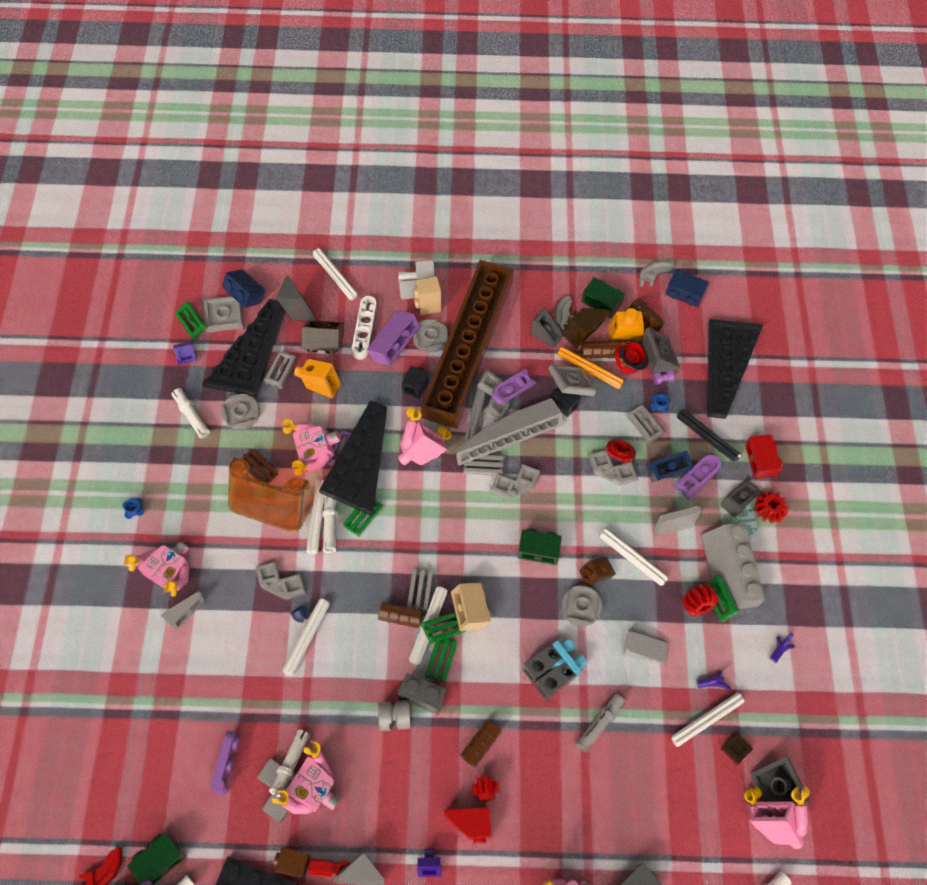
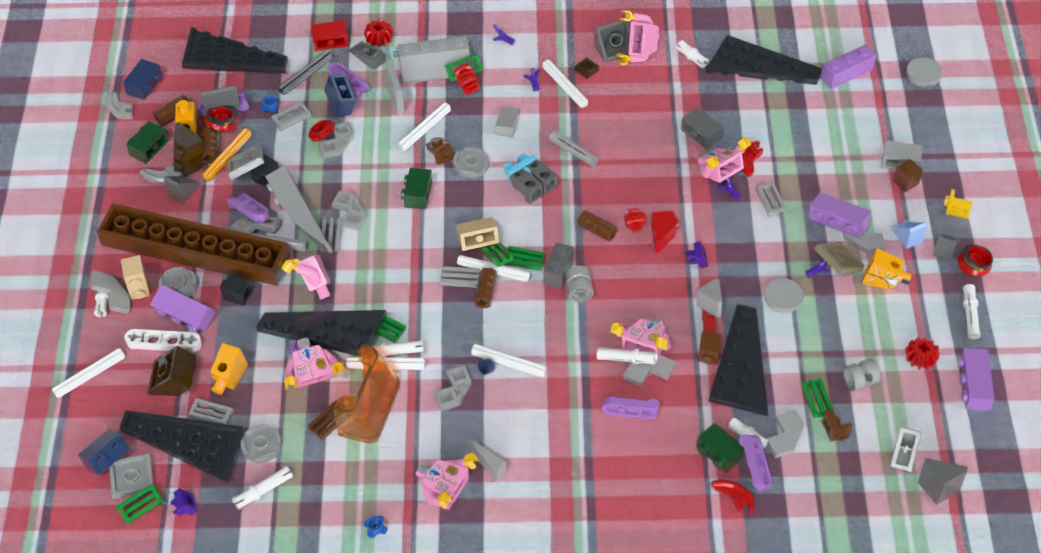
camera: 90 degrees left, 10 degrees down
(294, 302) = (131, 392): dark grey slope -> none

